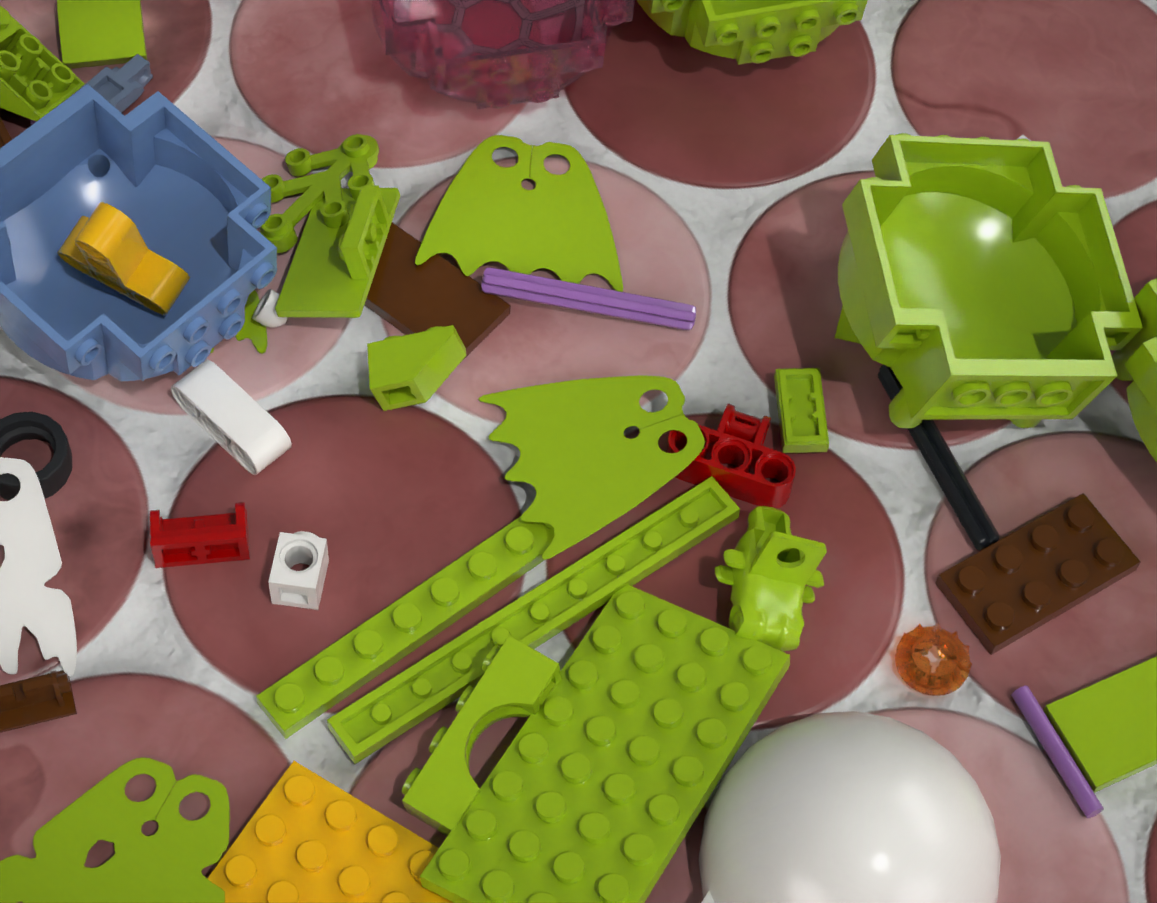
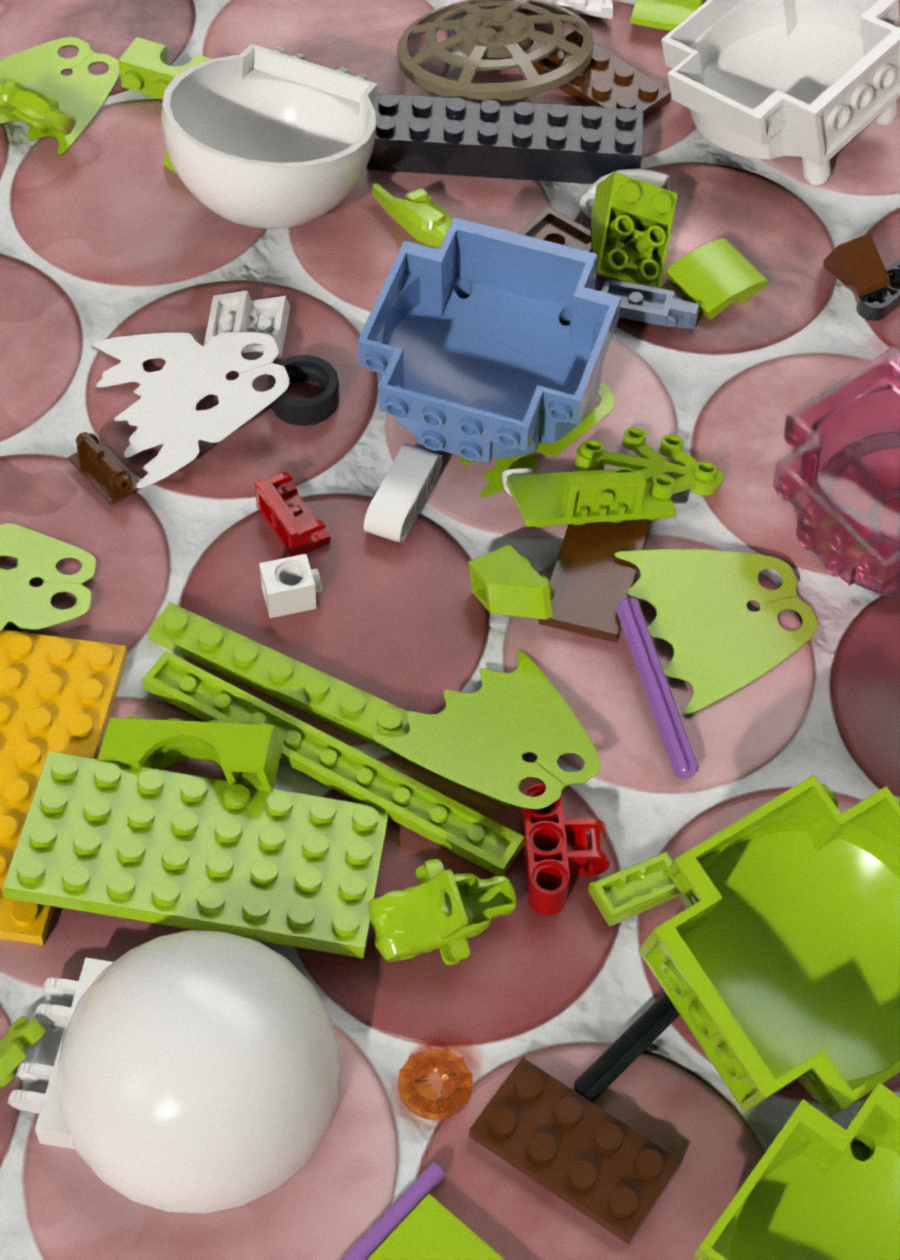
camera: 70 degrees right, 5 degrees down
(116, 255) = (486, 354): yellow beam -> none

